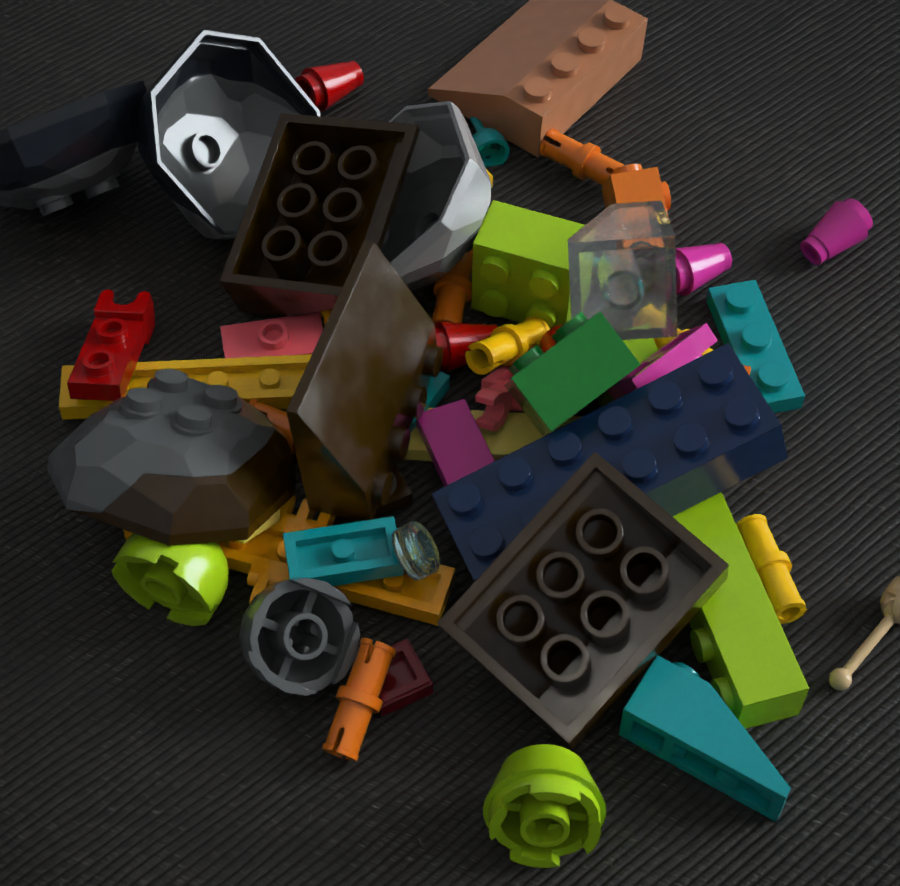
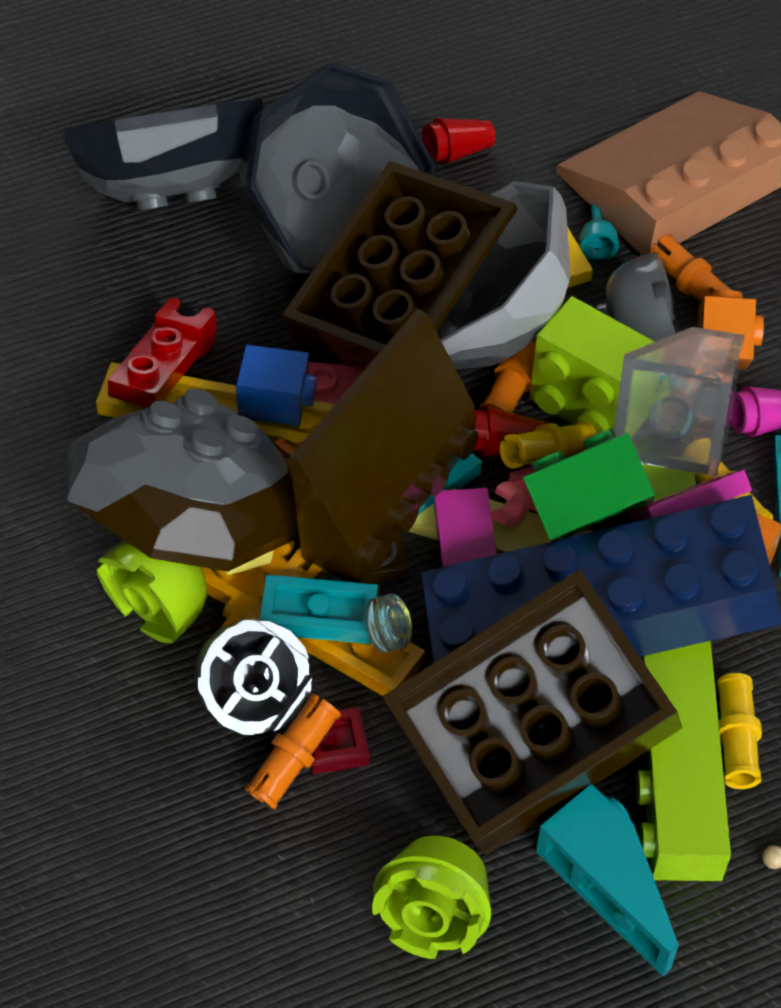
camera: 15 degrees right, 0 degrees up
(233, 349) = (275, 385): none -> blue brick
(549, 188) = (642, 297): none -> dark grey cylinder

